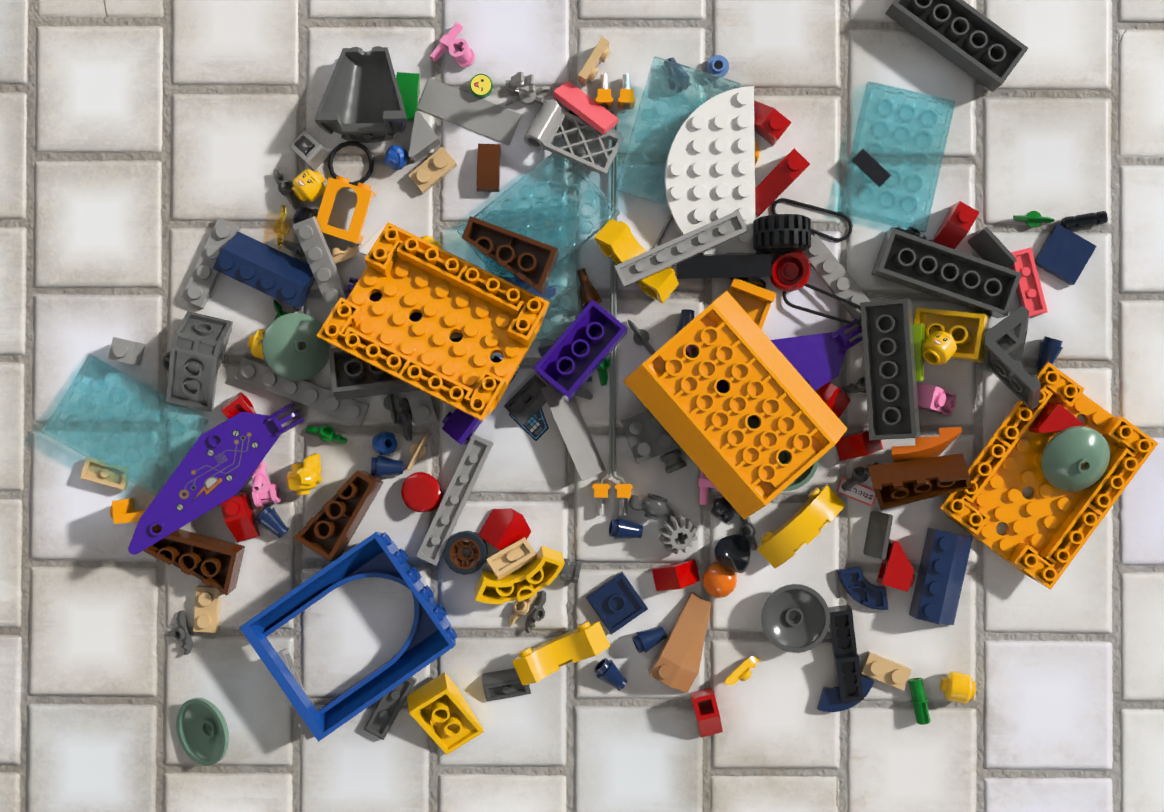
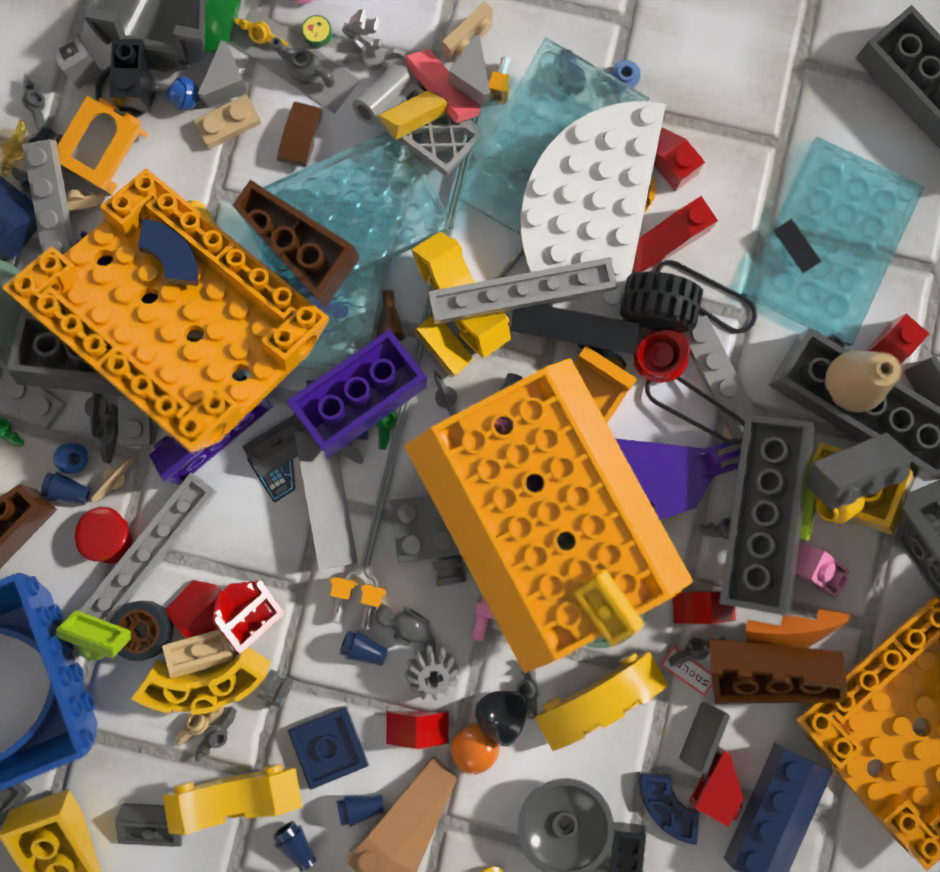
camera: 10 degrees right, 5 degrees down
(308, 185) = (60, 102): yellow head -> none
(355, 154) = (129, 76): none -> black slope
(424, 280) = (171, 251): none -> dark blue tile
(436, 563) = (93, 636): none -> lime tile
(440, 97) = (258, 31): none -> yellow piece
(478, 114) = (303, 64): none -> dark grey piece
(537, 523) = (245, 613): none -> red slope
(570, 135) = (413, 114): none -> yellow slope
(606, 96) = (470, 74): none -> light grey slope
(631, 301) = (443, 346): none -> yellow slope
(723, 510) = (500, 654): black arm -> none
(794, 461) = (608, 608): none -> yellow slope
(834, 398) = (683, 536): red slope -> none
(936, 258) = (861, 379): none -> tan cone
(948, 324) = (859, 471): none -> dark grey brick

